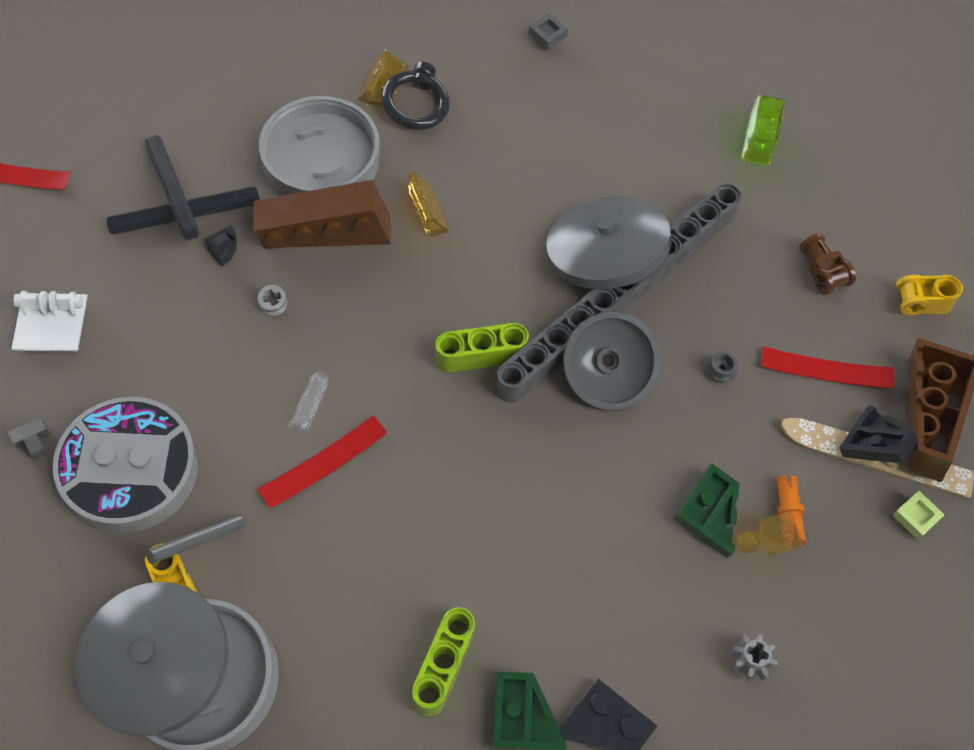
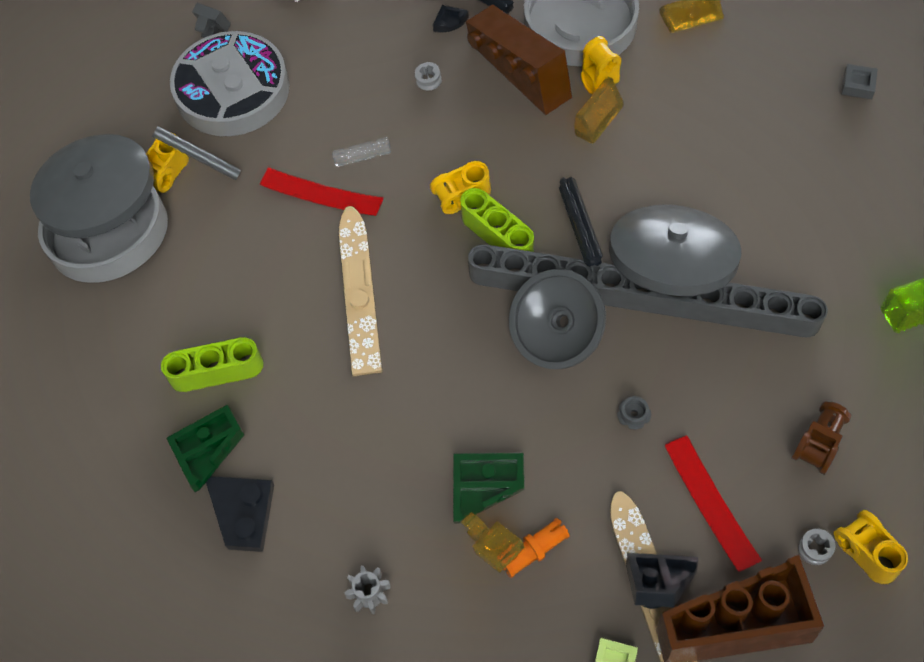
camera: 65 degrees right, 0 degrees up
(392, 172) = (599, 64): none -> yellow piece
(419, 351) = (458, 182): none -> yellow piece
(422, 77) = (719, 32): black piece -> none
(454, 496) = (359, 294): none -> tan piece
(530, 285) = (580, 222): none -> black axle
(899, 335) = (812, 556): none -> light grey bush

